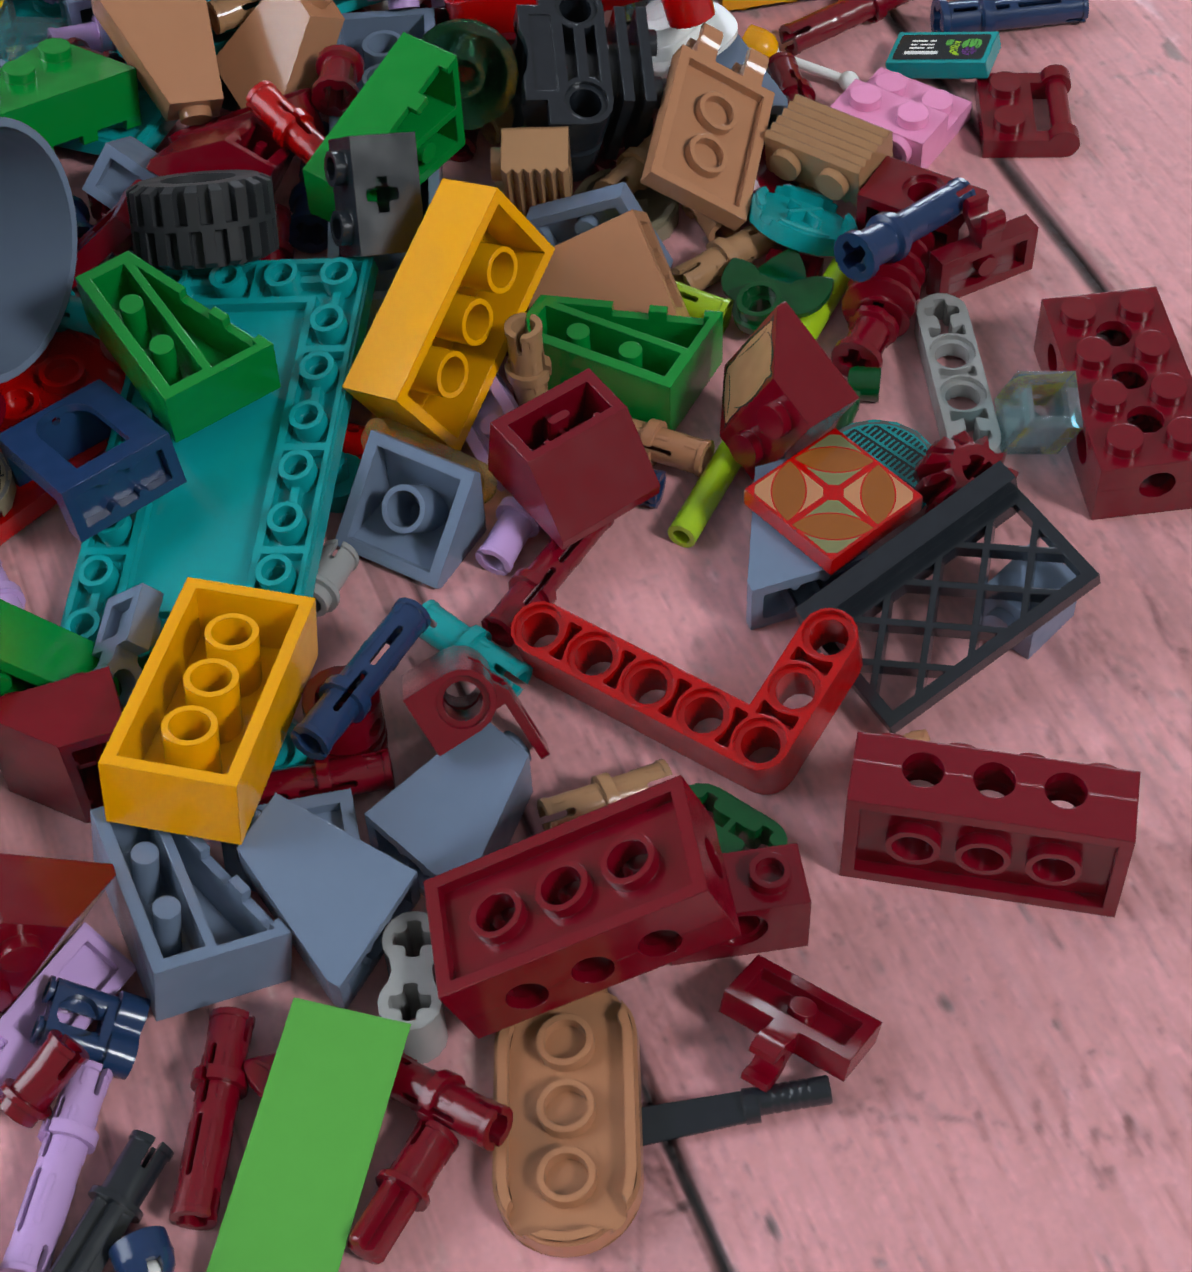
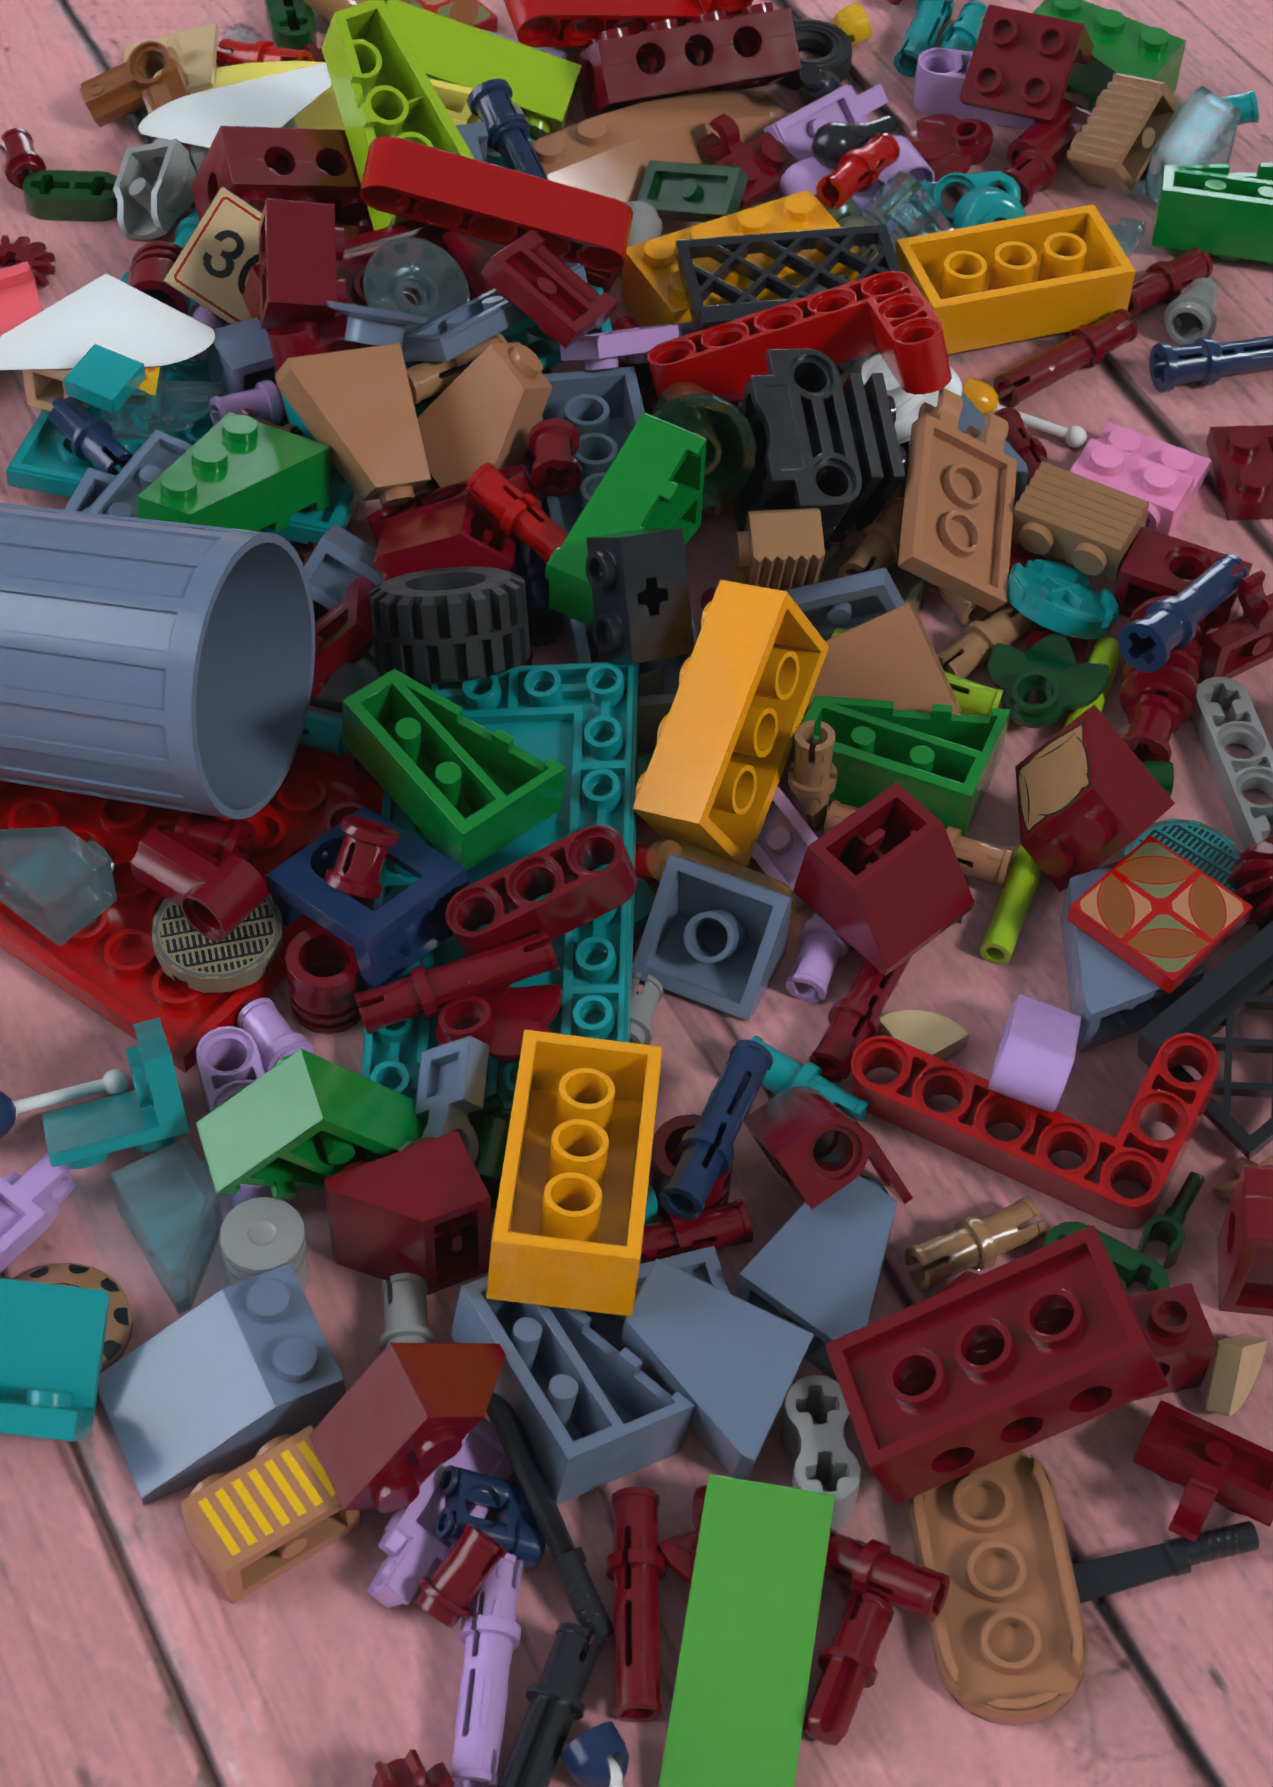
camera: 10 degrees left, 0 degrees up
(40, 537) = (323, 981): none -> dark red piece
(57, 830) = (405, 1311): none -> light grey pin
(77, 420) = (361, 857): none -> dark red bush
(128, 543) = (473, 975): none -> dark red pin
(135, 1010) = (567, 1560): none -> black piece
(183, 557) = (500, 1017): none -> dark red plate
(238, 462) = (559, 869): none -> dark red beam
(599, 605) = (925, 1031): none -> tan tile
(687, 623) = (1035, 1053): none -> lavender beam
(798, 792) = (1169, 1226): none -> dark green hand
(838, 932) = (1234, 1372): none -> tan tile
(944, 54) = (1173, 406): tile -> none

